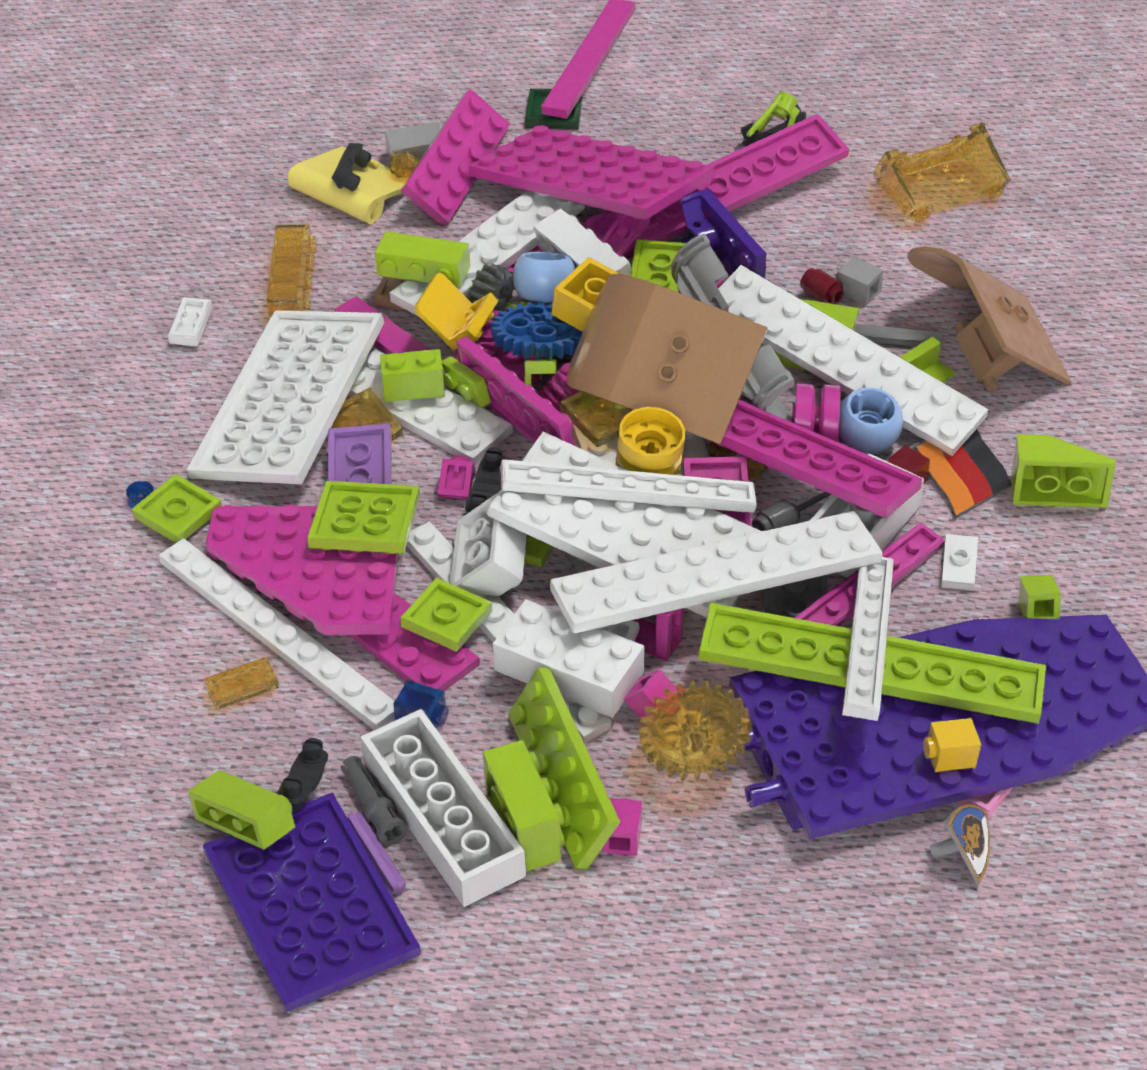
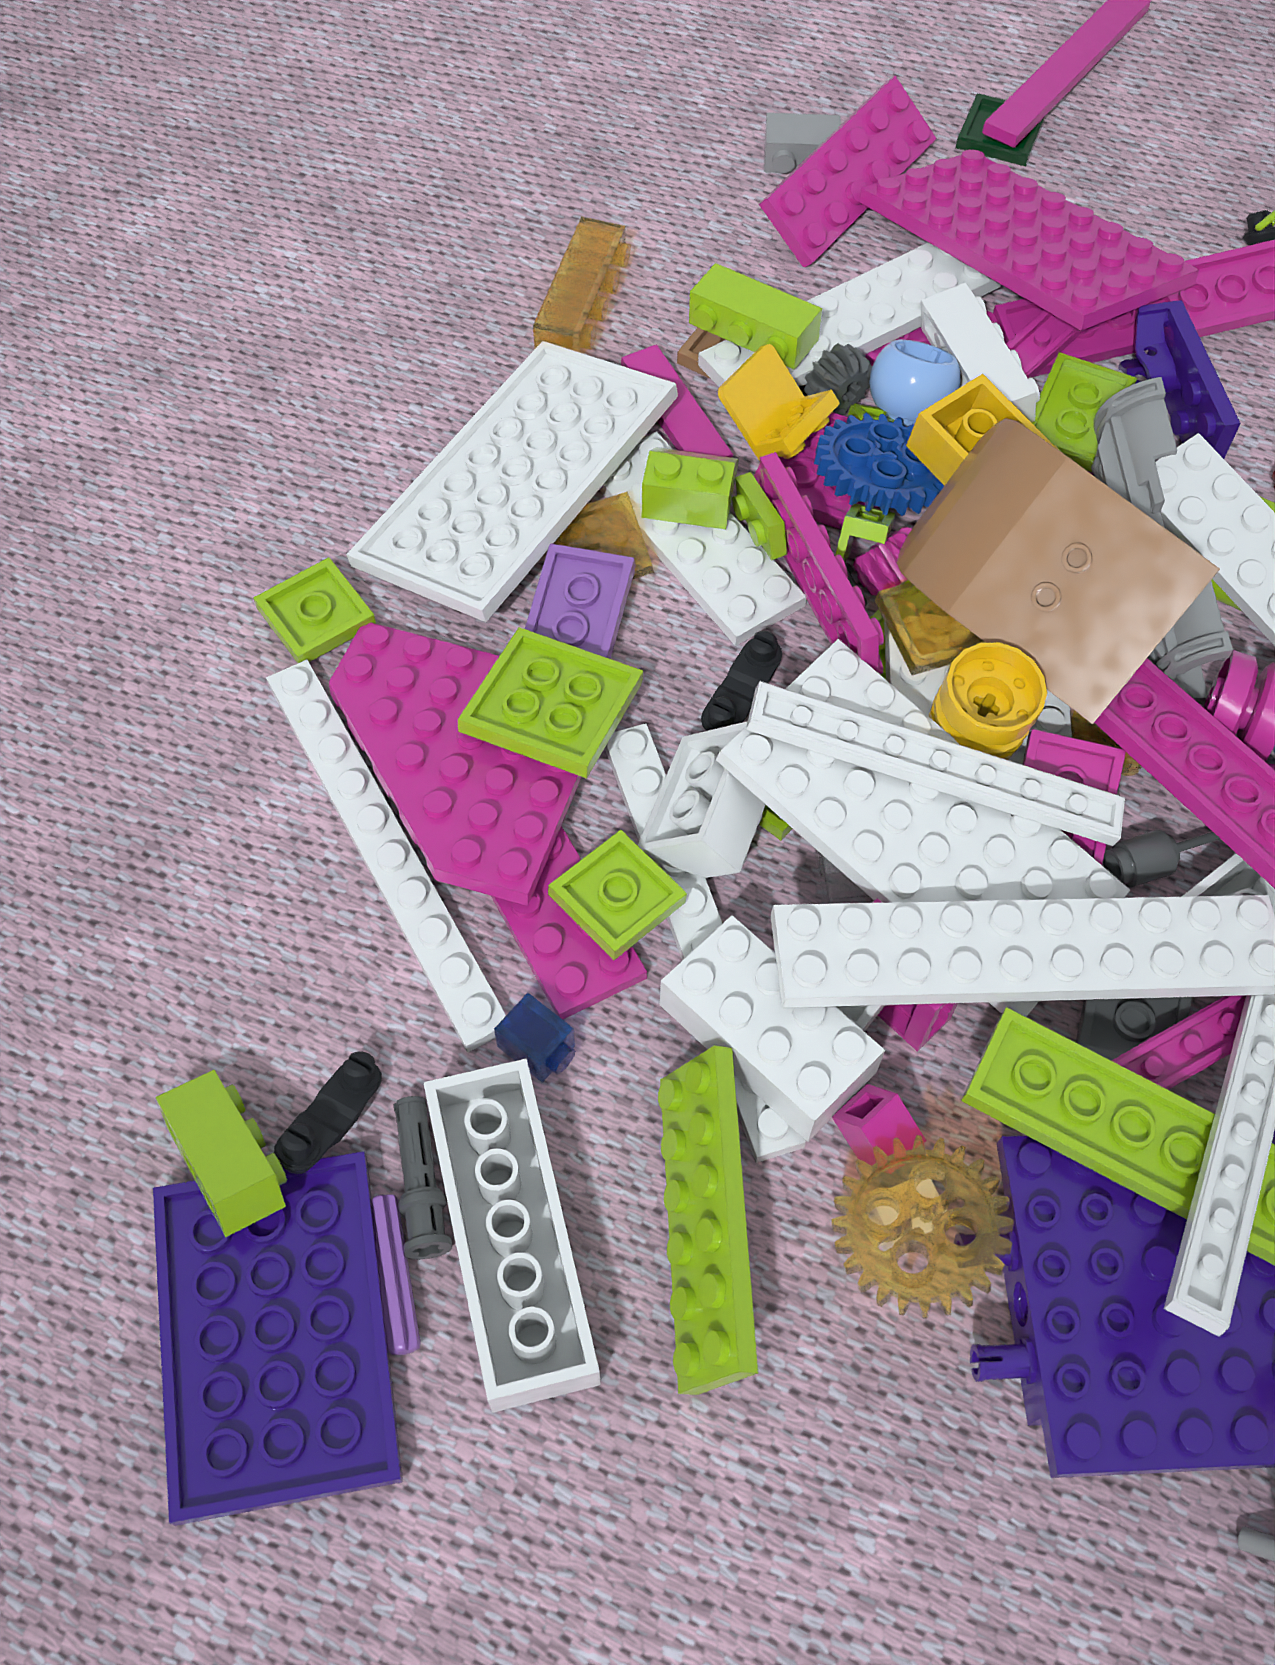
camera: 15 degrees right, 15 degrees up
(137, 488) = (273, 565): clear blue bush -> none
(190, 321) = (429, 330): white plate -> none
(241, 683) = (303, 919): clear yellow plate -> none
(343, 173) = (689, 165): black piece -> none
(365, 203) = (698, 175): light yellow door -> none
(403, 164) = (776, 165): clear yellow cone -> none
(456, 478) = (703, 663): dark pink bracket -> none
(524, 802) = (628, 1273): lime brick -> none
(627, 834) = (777, 1338): dark pink brick -> none

